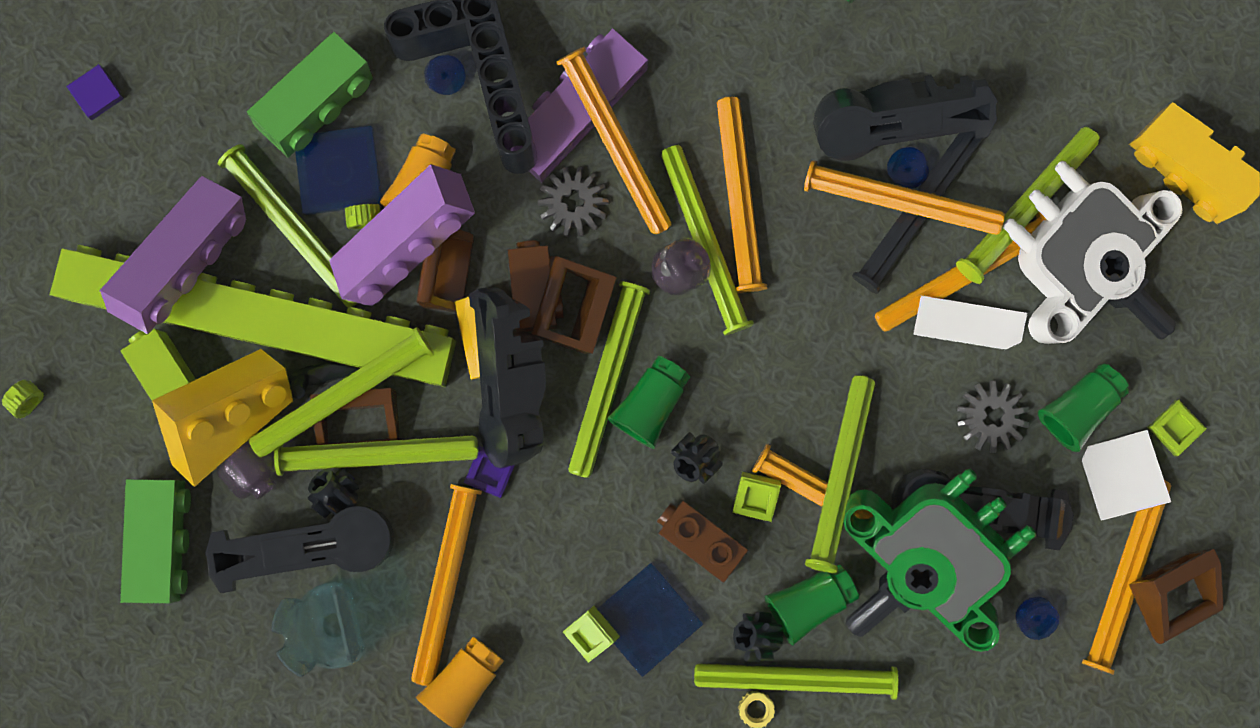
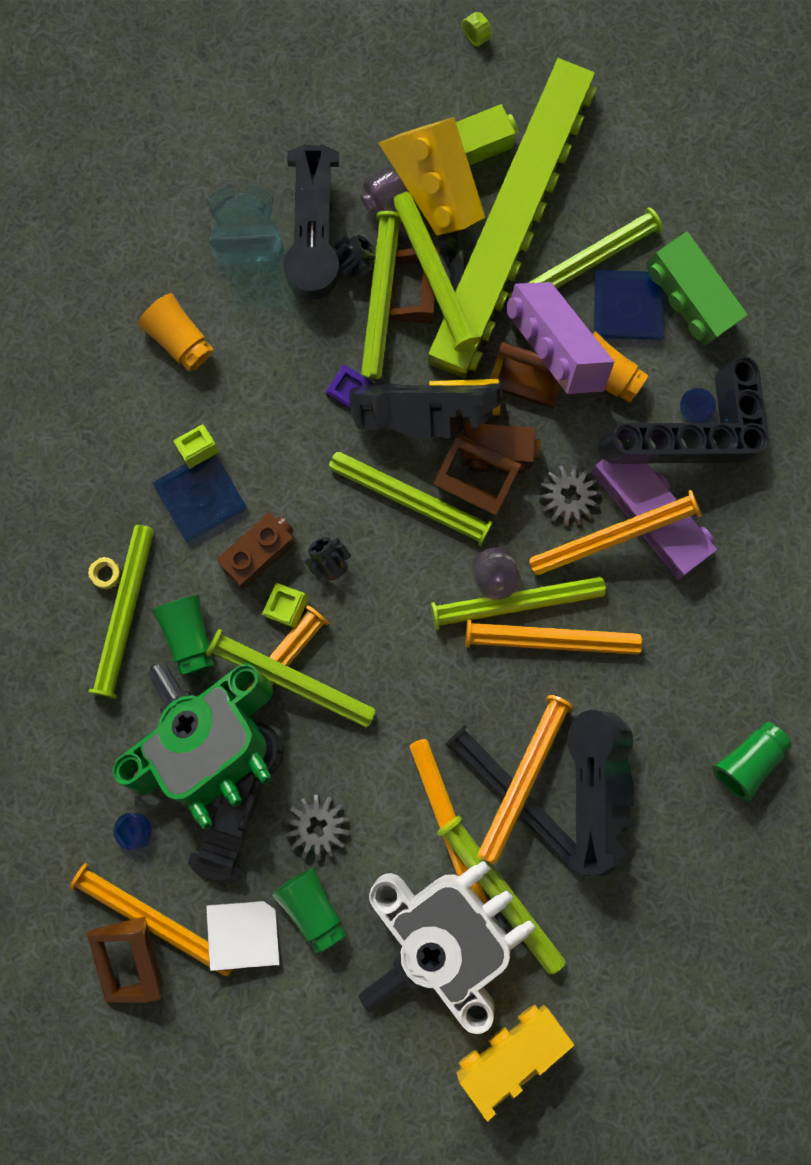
camera: 95 degrees right, 5 degrees down
(95, 92) = (725, 121): dark purple tile -> none
(154, 541) = (341, 111): bright green brick -> none
(174, 255) = (574, 156): medium lavender brick -> none
(360, 215) = (586, 313): lime axle -> none
(444, 584) = (263, 335): light orange axle -> none
(651, 402) = (383, 528): green plant -> none
(758, 636) = (165, 582): black gear -> none
(908, 167) = (553, 792): clear blue tile -> none
(969, 323) = (403, 821): white sticker -> none
(1176, 428) = (276, 994): lime tile -> none

